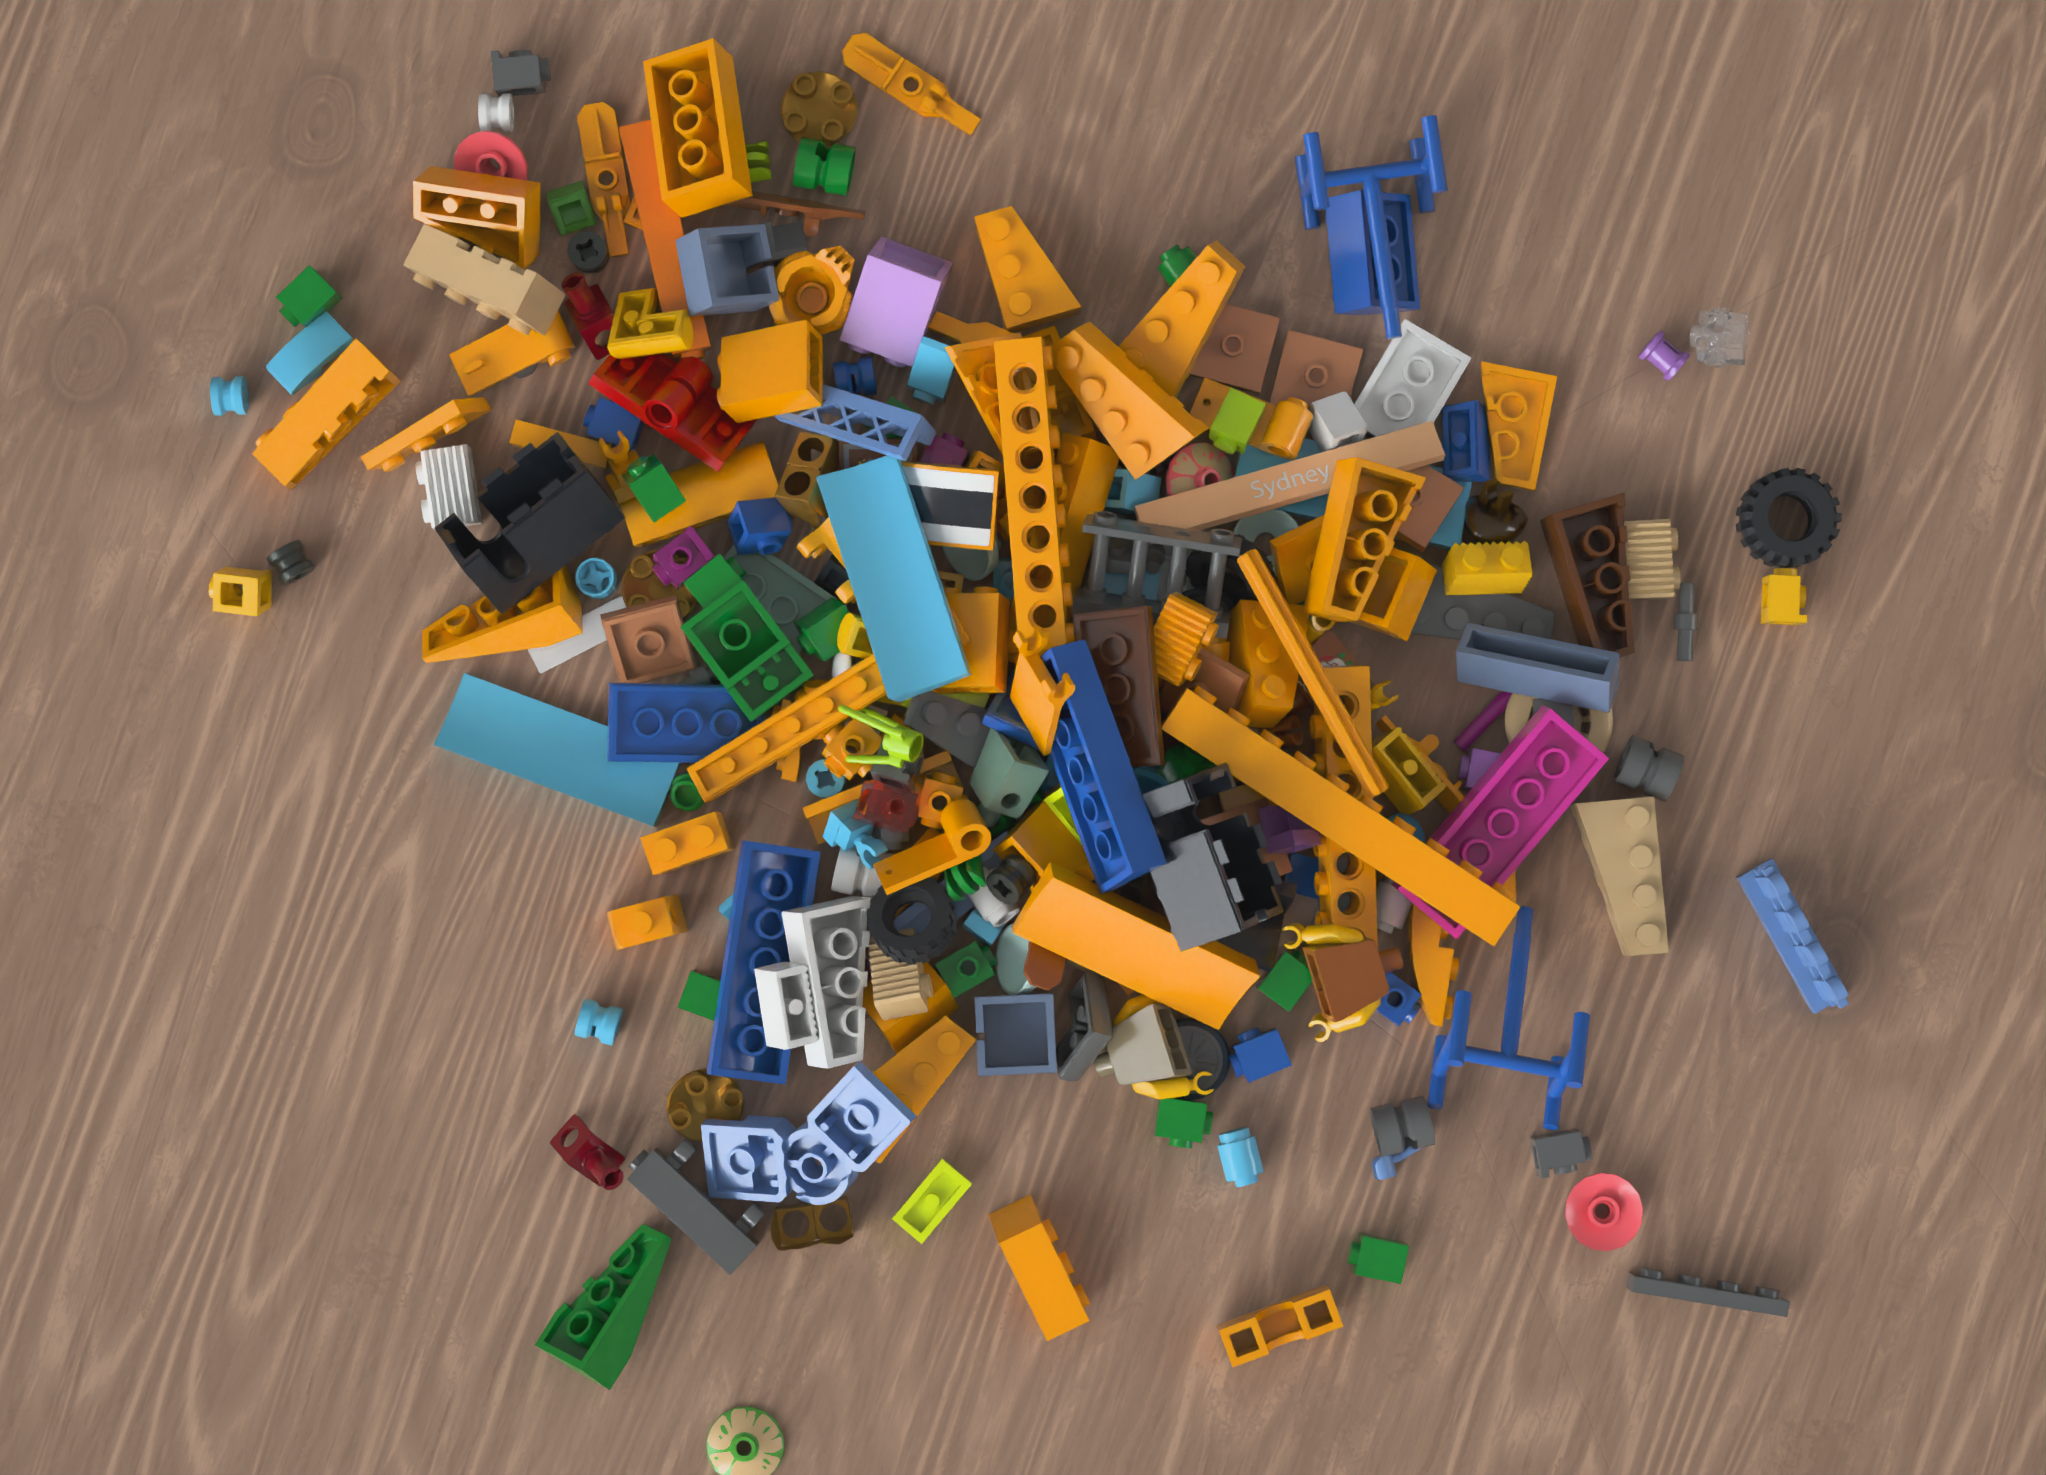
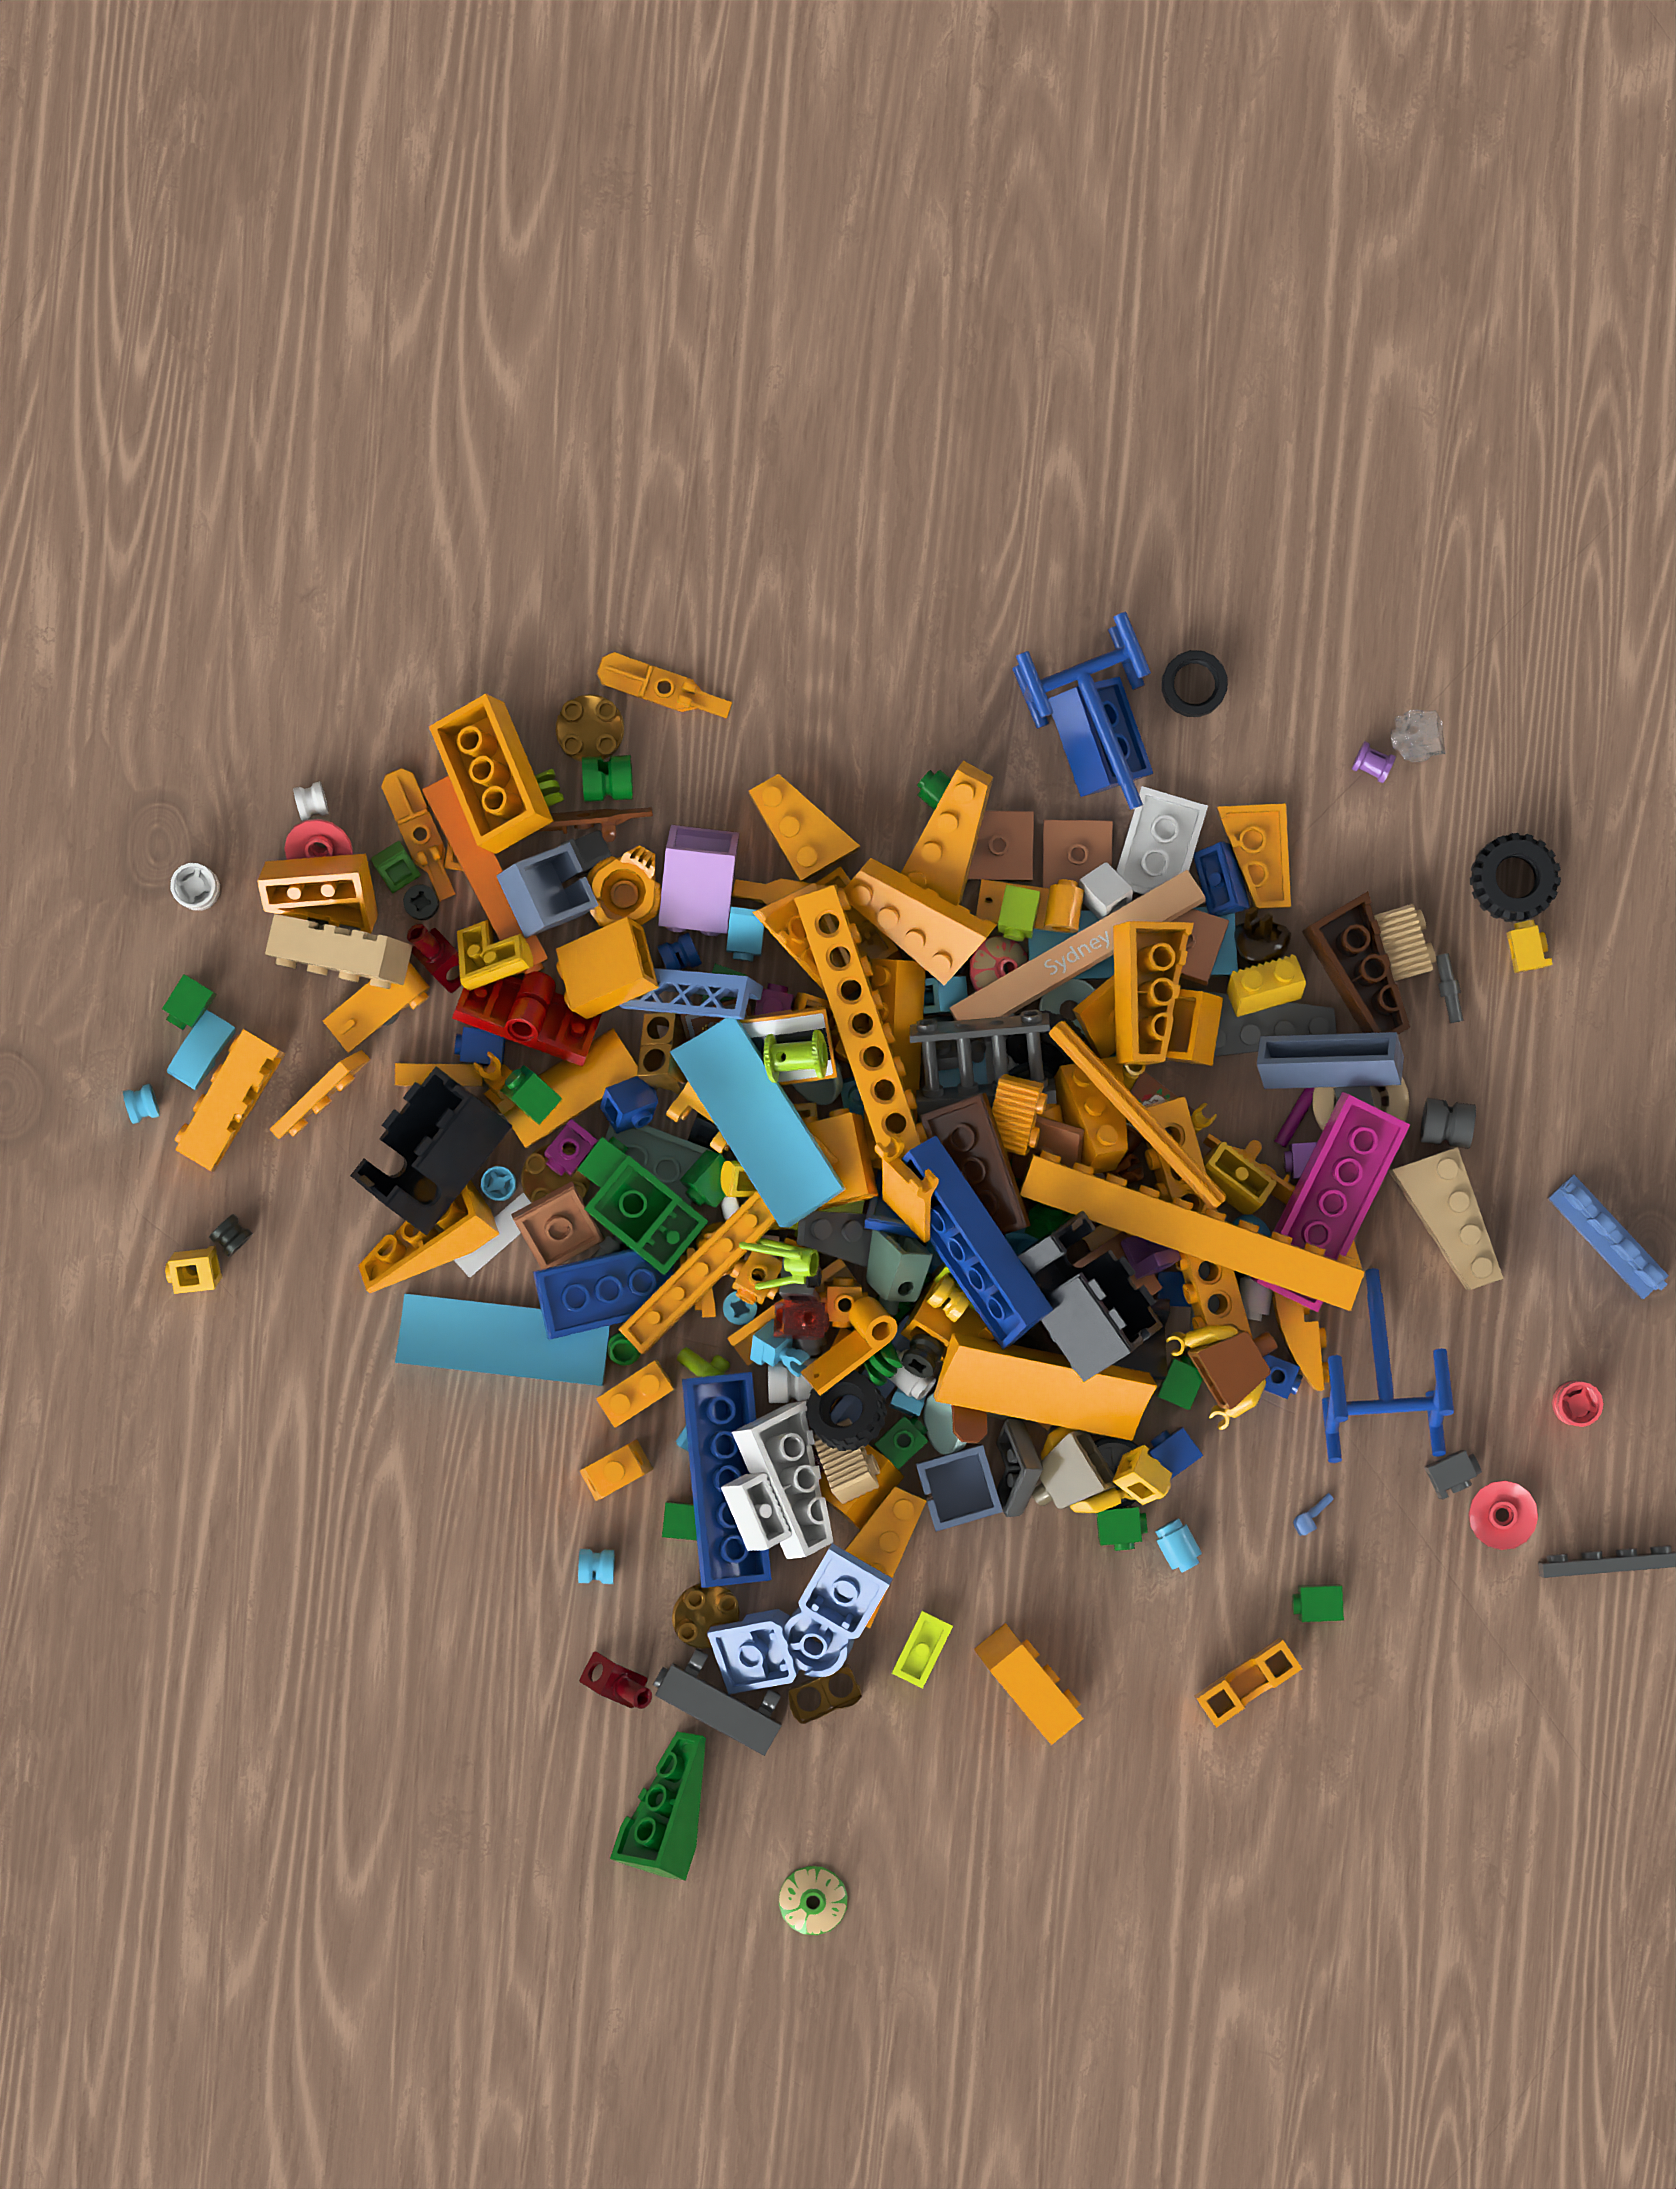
camera: 15 degrees left, 0 degrees up
(346, 174) = (195, 886): none -> white wheel
(449, 485) = (351, 1135): white brick -> none
(520, 73) = (323, 761): dark grey brick -> none
(767, 832) = (700, 1366): none -> lime arm
(955, 514) = (798, 1056): none -> lime hose
(1055, 823) = (948, 1298): none -> yellow wheel
(1219, 1071) = (1142, 1476): none -> yellow brick
(1402, 1126) = (1311, 1484): dark grey wheel -> none
(1507, 198) = (1214, 666): none -> black tyre
(1715, 1110) = (1577, 1403): none -> coral wheel

